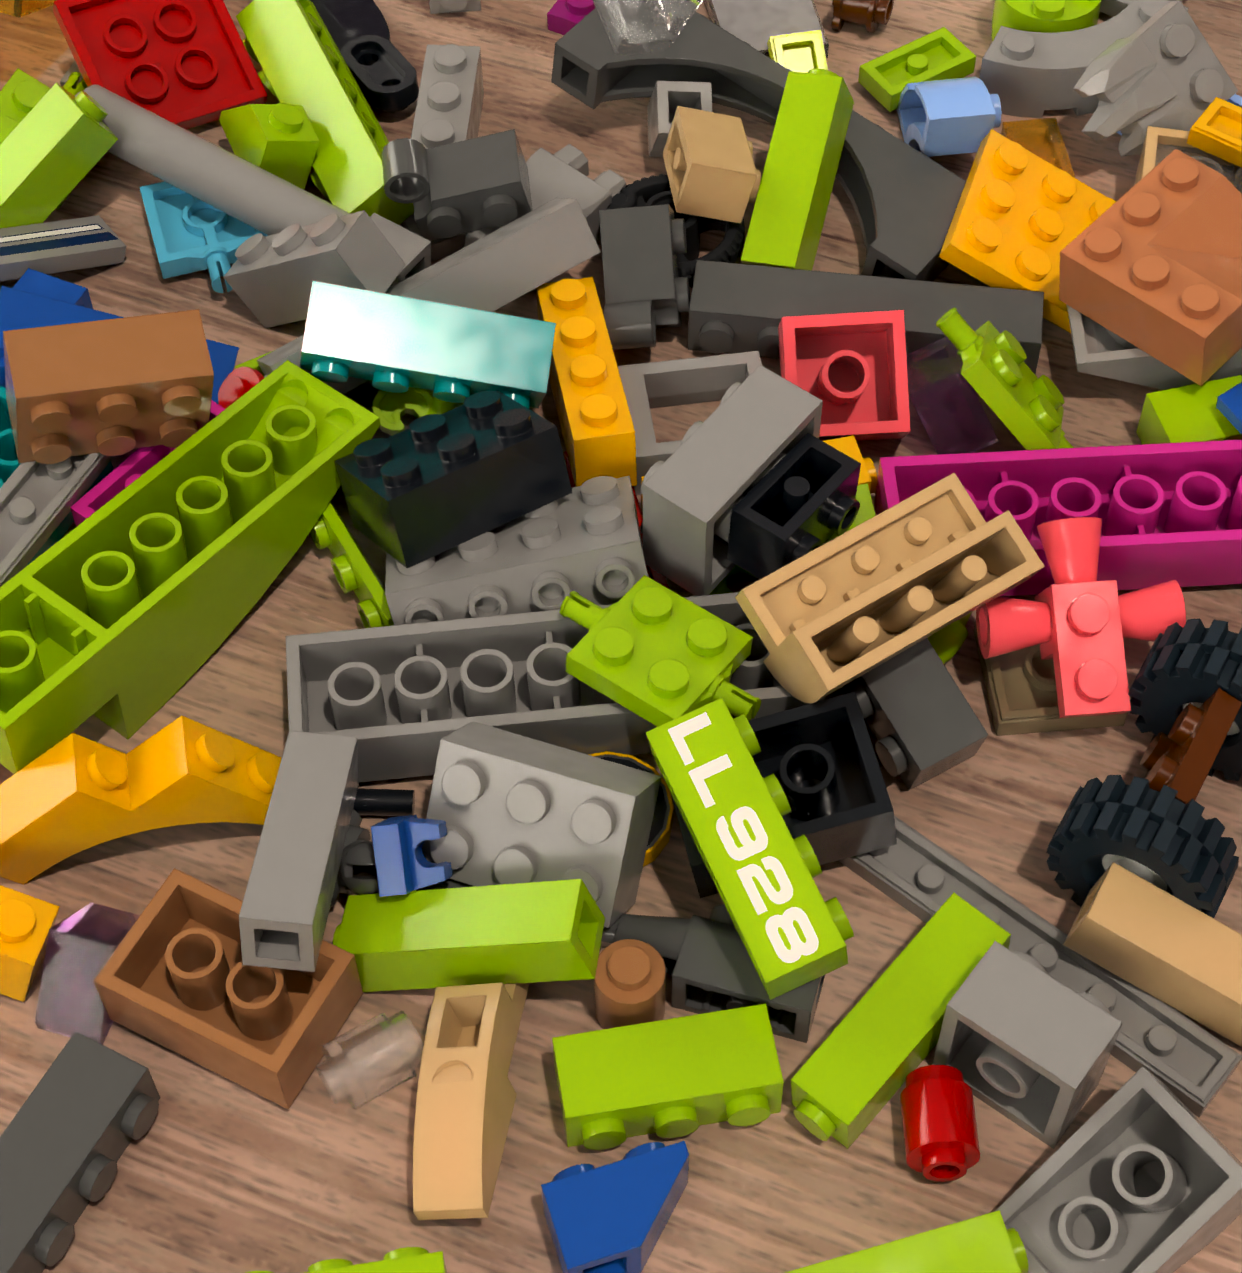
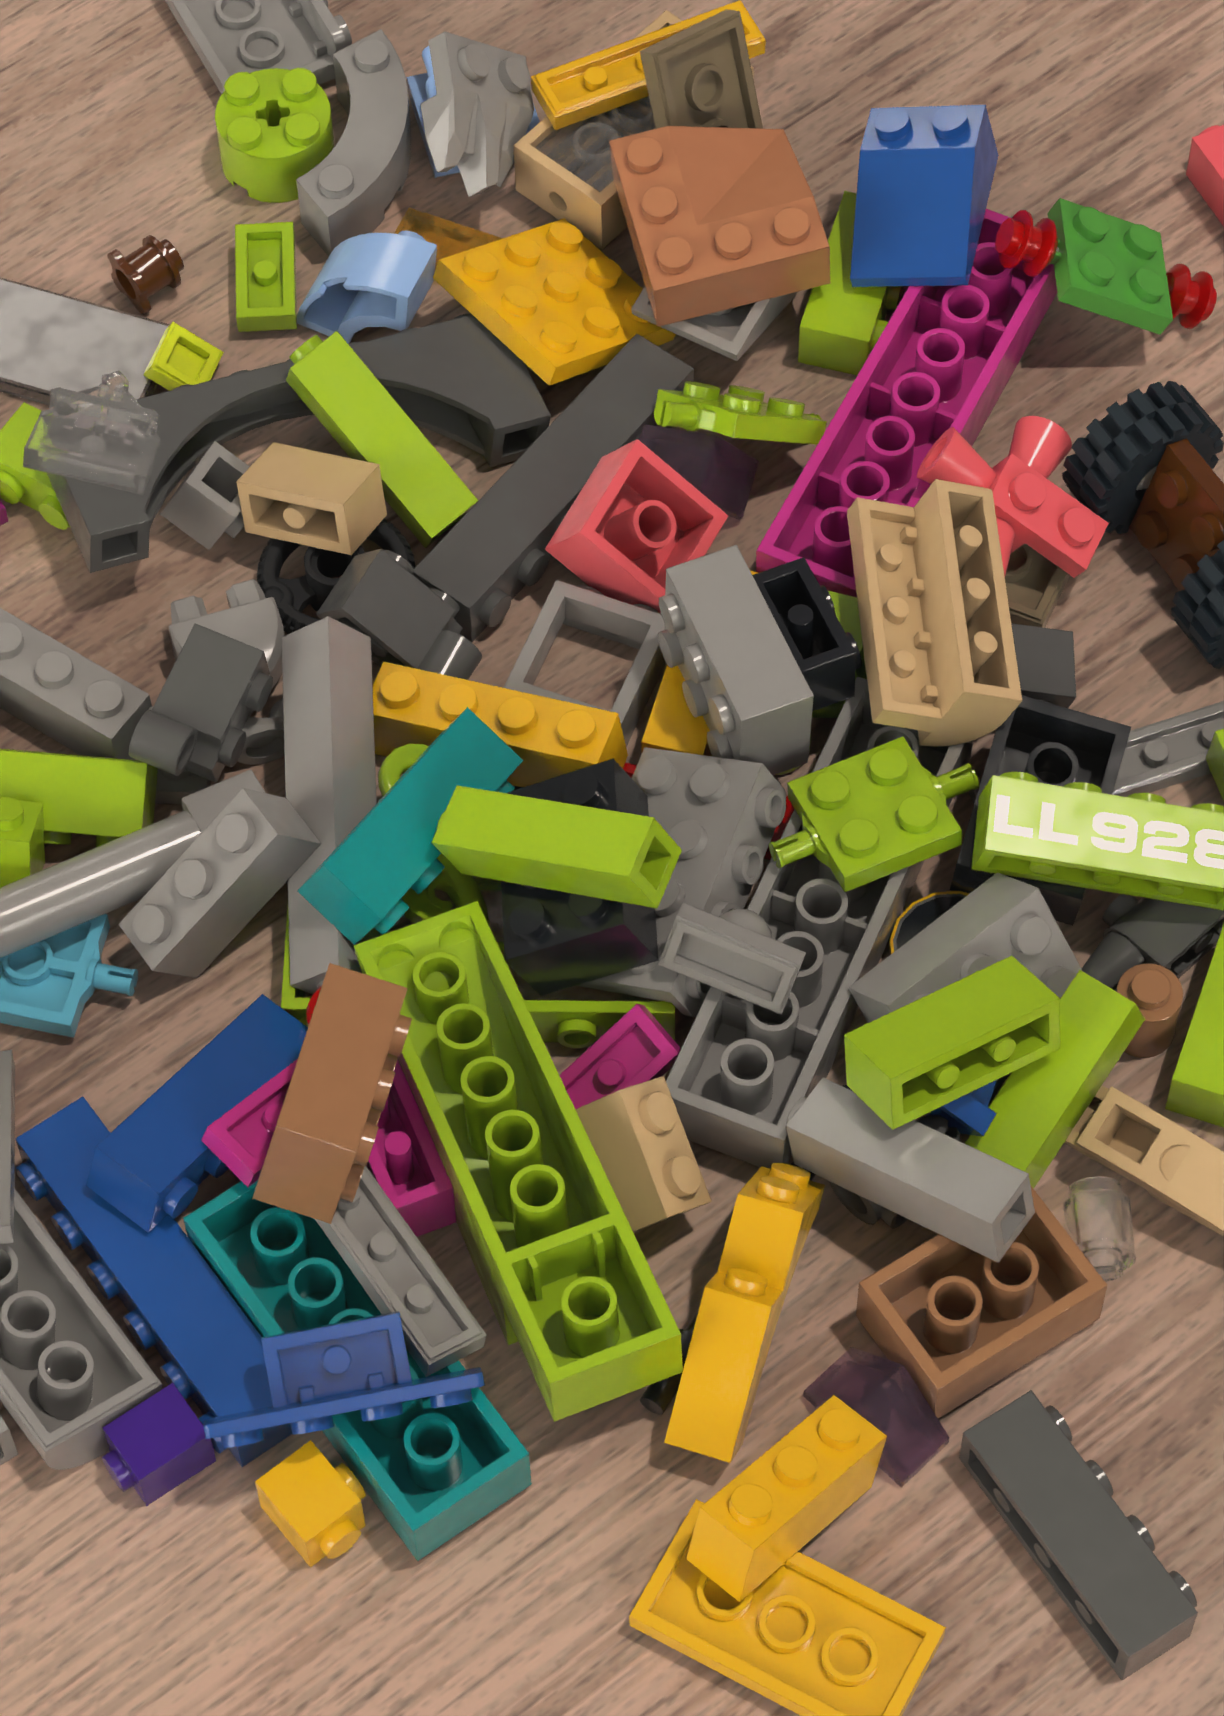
camera: 60 degrees left, 5 degrees up
(225, 657) = (645, 1153): none -> tan brick
(311, 606) = (624, 1056): none -> dark pink plate
(422, 801) = (952, 1042): none -> lime brick
(425, 419) = (557, 846): none -> lime brick
(435, 610) = (733, 955): none -> light grey tile

